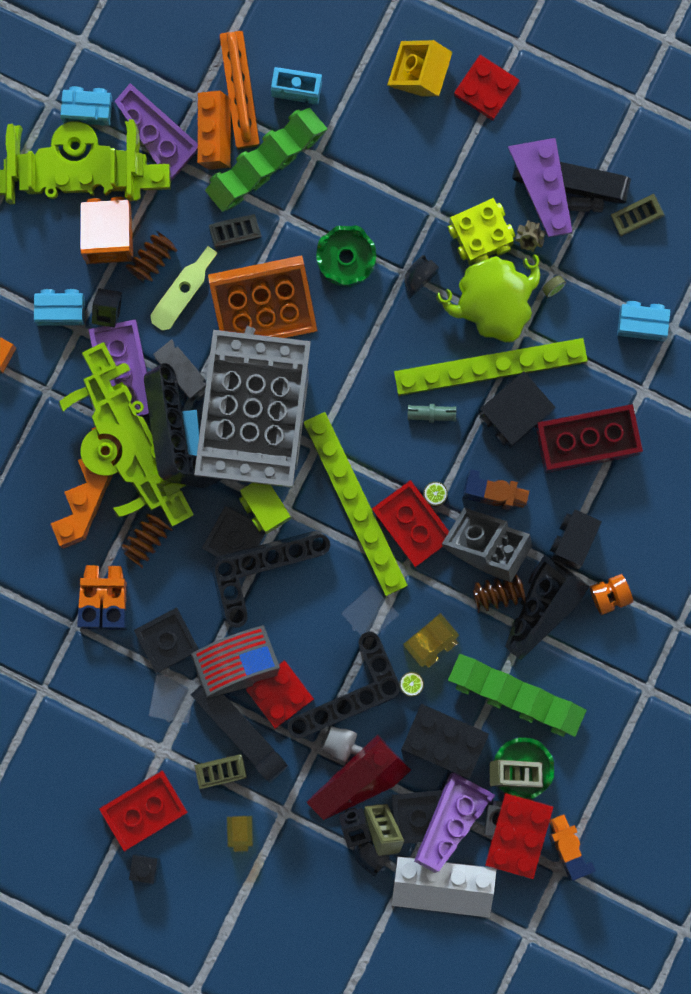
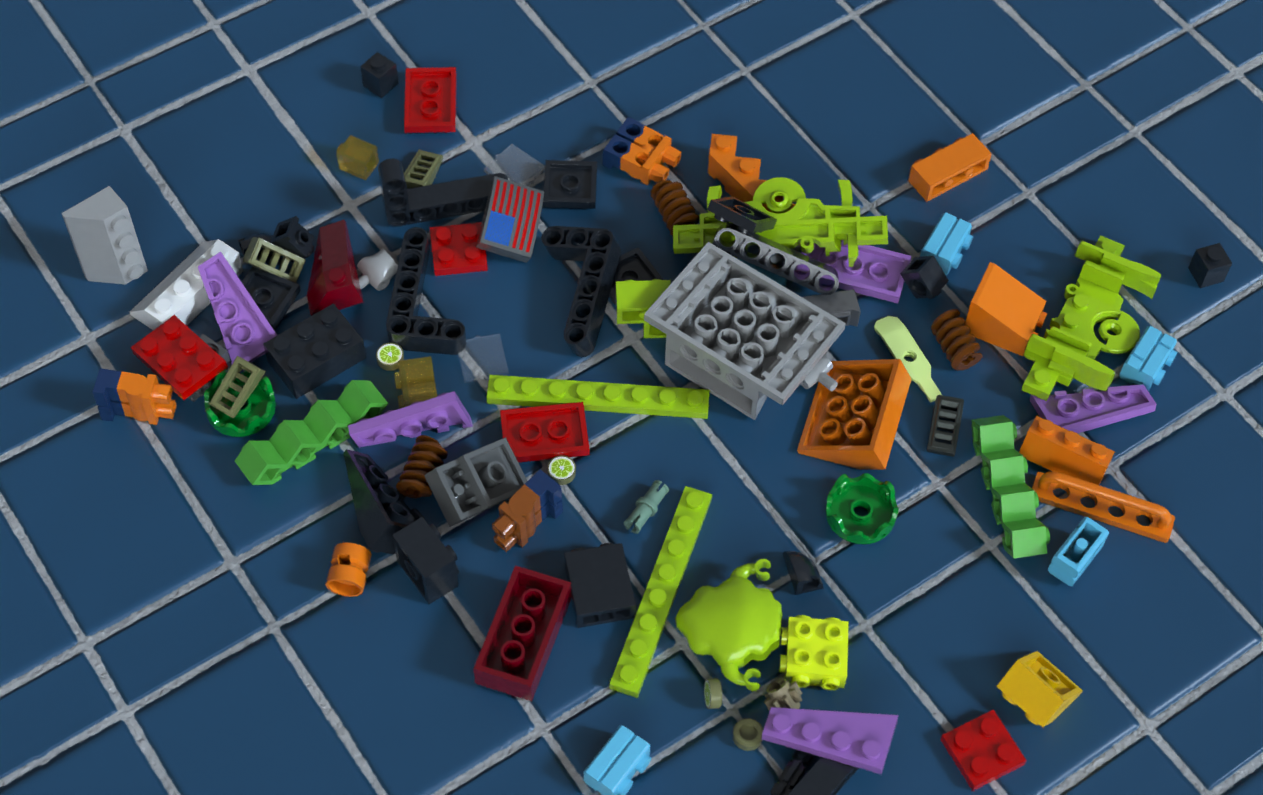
camera: 115 degrees right, 25 degrees down
(148, 464) = (741, 214): none -> black plate
(455, 959) = (105, 239): none -> light grey slope
(460, 621) = (411, 420): none -> medium lavender wing
(567, 249) = (748, 734): none -> olive tile

